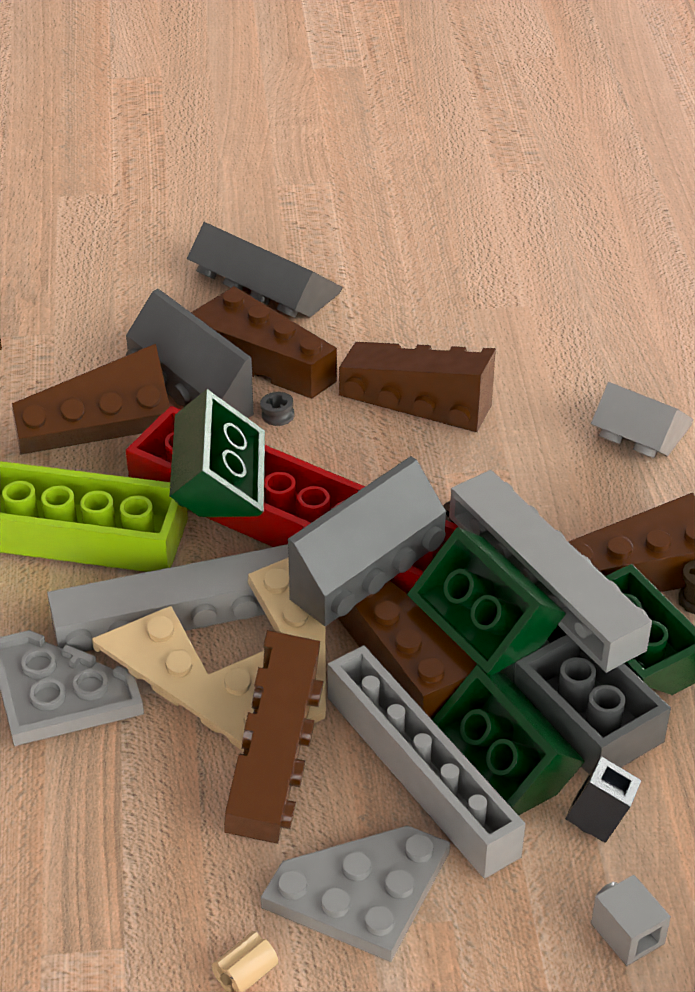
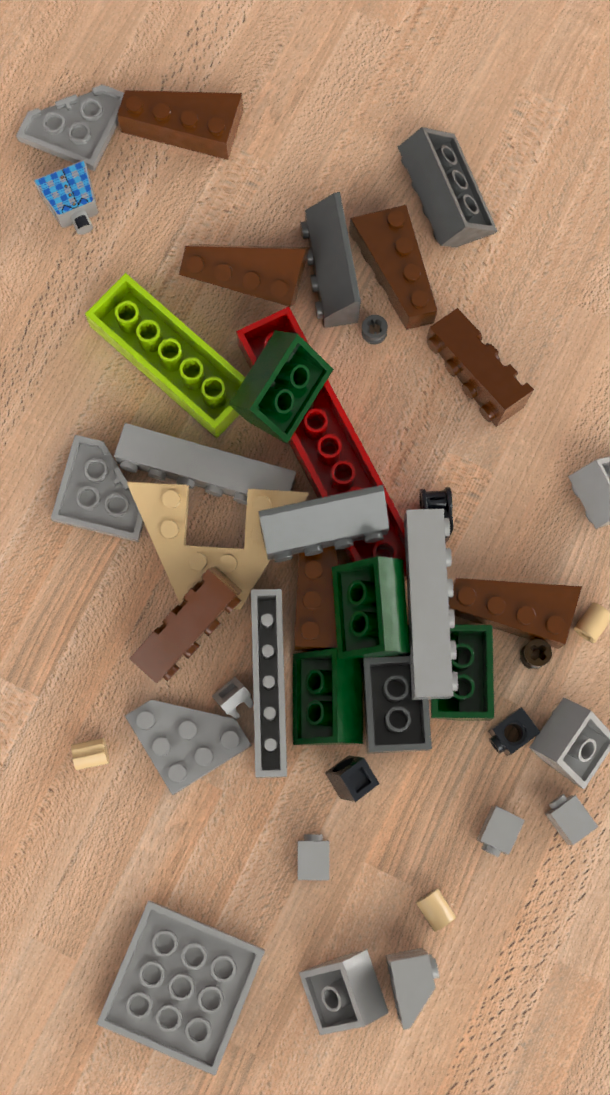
camera: 30 degrees right, 35 degrees up
(385, 801) = (231, 696): none -> light grey tile

